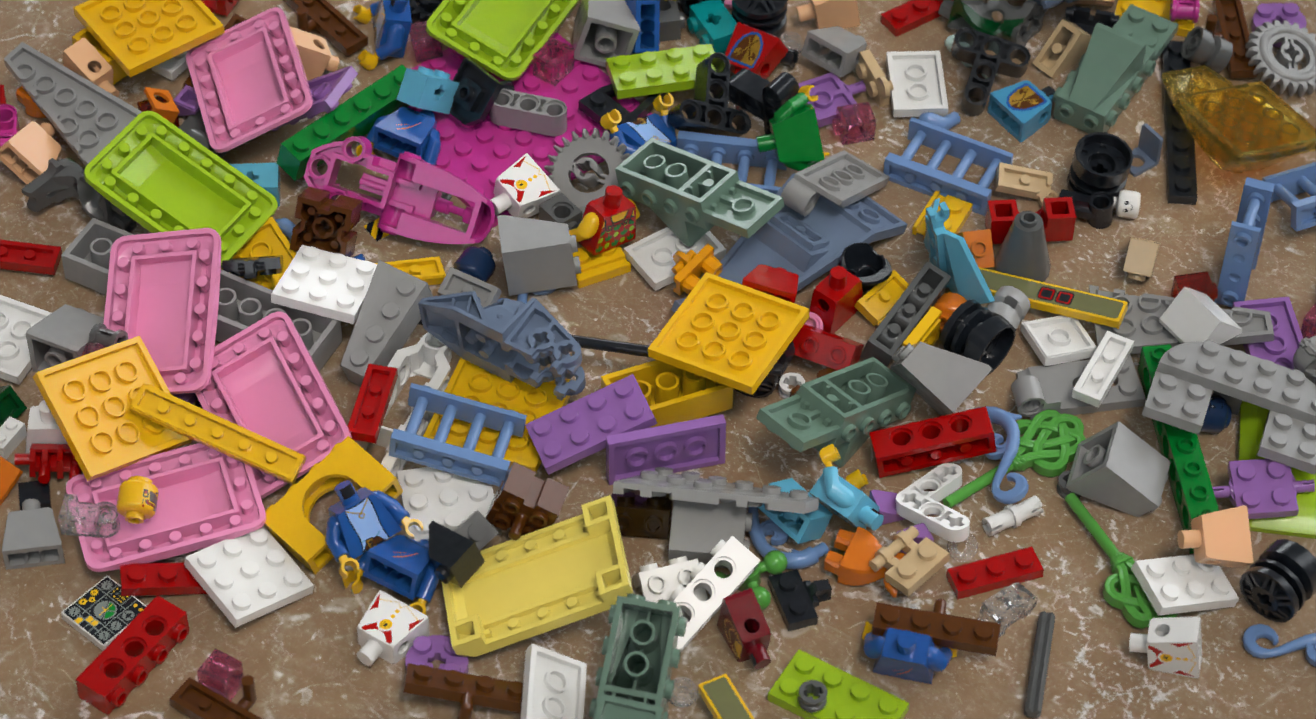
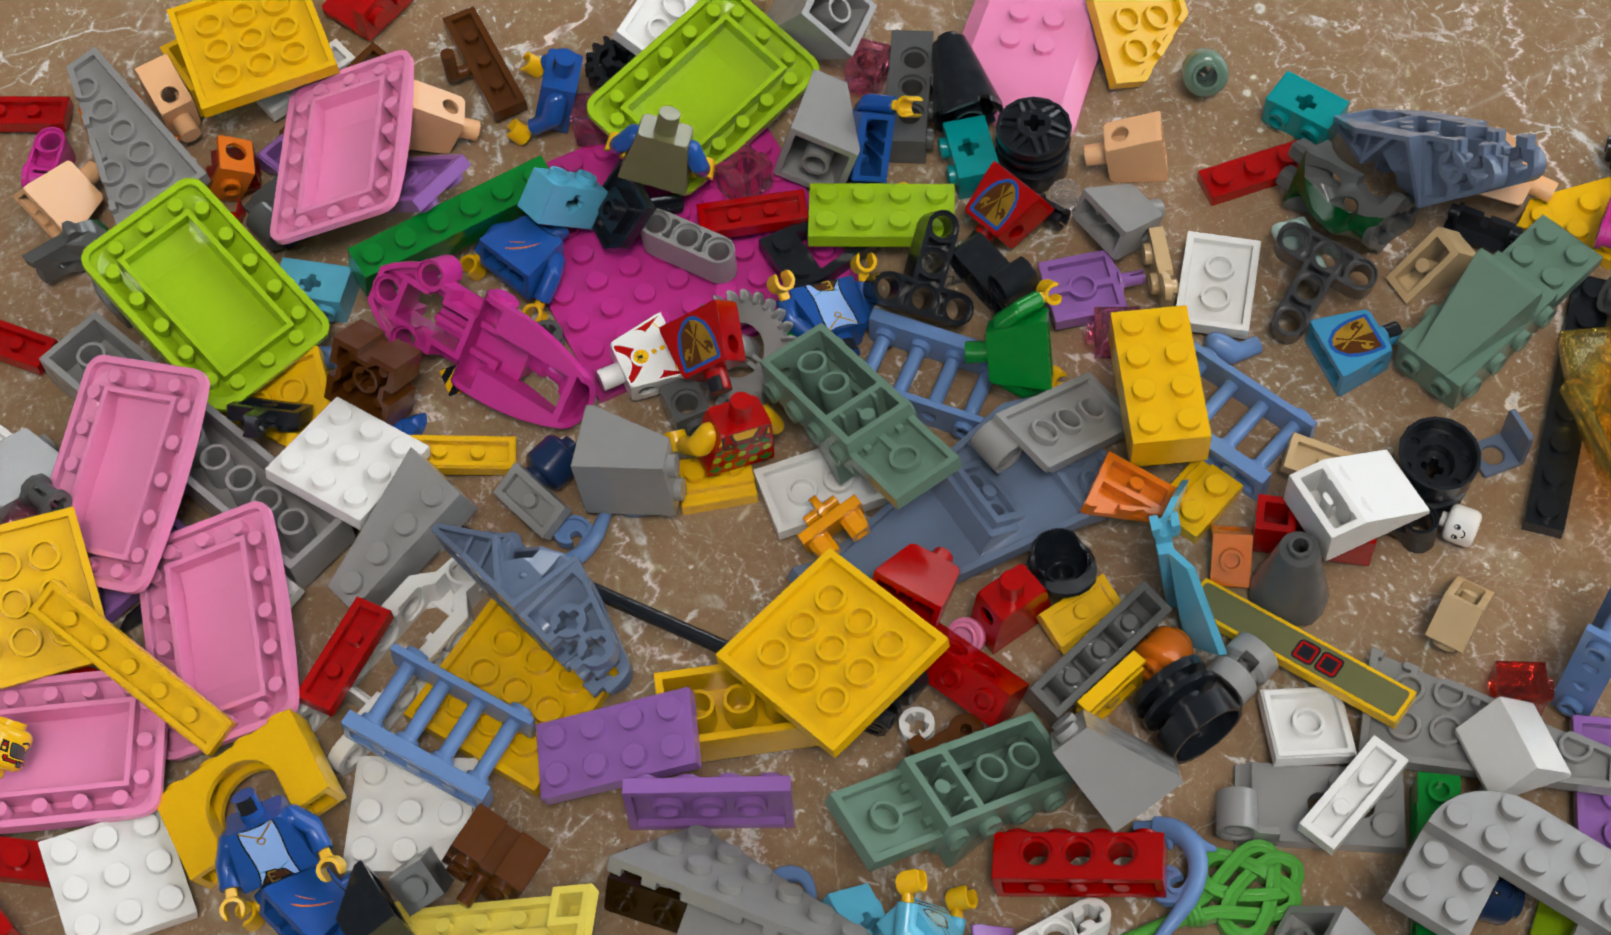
camera: 20 degrees right, 10 degrees up
(496, 45) = (660, 152): none -> olive torso
(570, 166) = (707, 344): none -> red torso
(571, 84) = (754, 213): none -> red plate
(896, 215) = (1126, 491): none -> orange wing
(900, 144) = (1159, 386): none -> yellow brick
(1052, 190) = (1352, 500): none -> white slope

